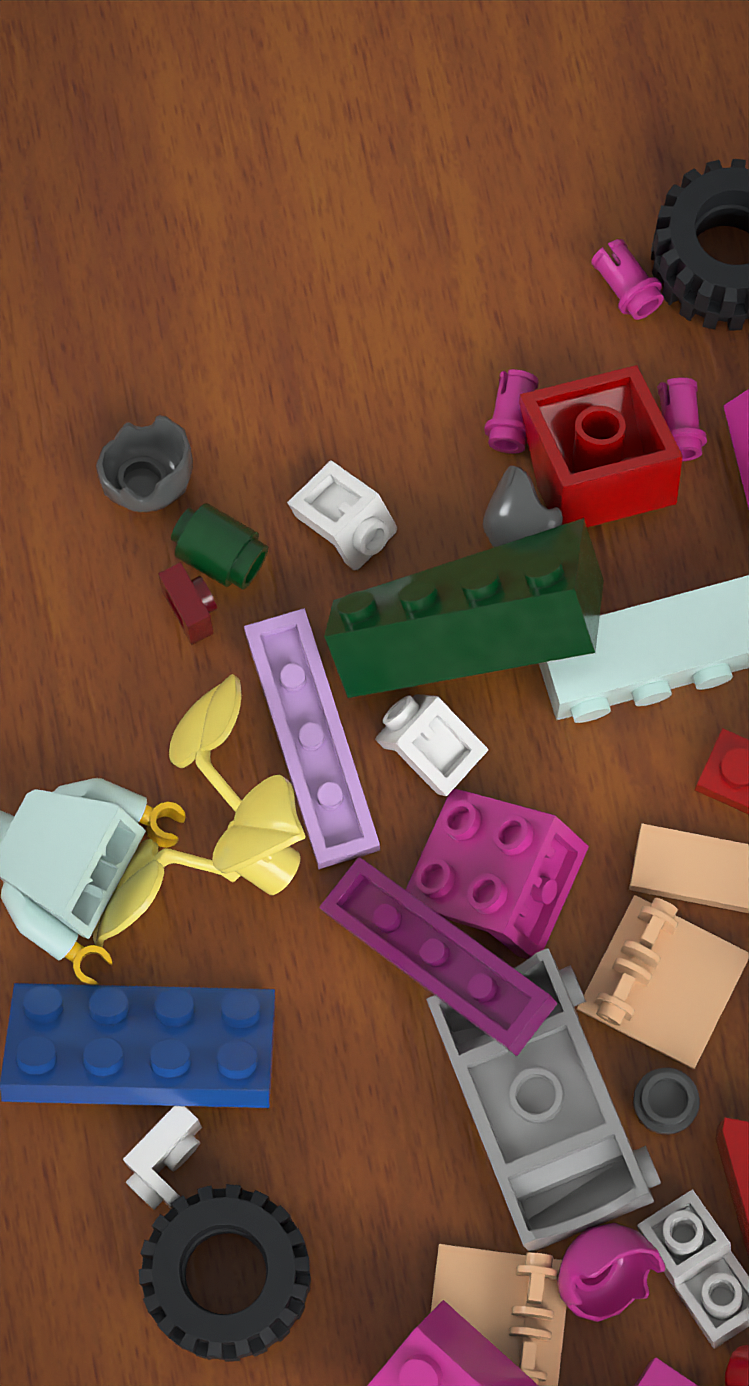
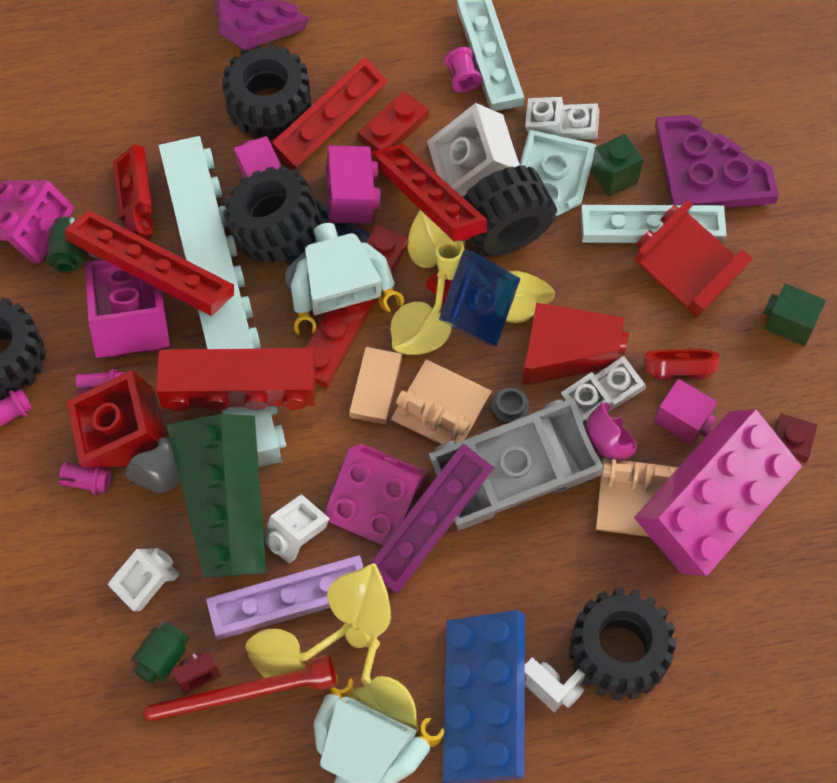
camera: 90 degrees left, 10 degrees down
(146, 465) = (100, 697): dark grey hair -> none
(175, 784) = (316, 674): none -> red piece
(671, 625) = (236, 378): none -> red brick

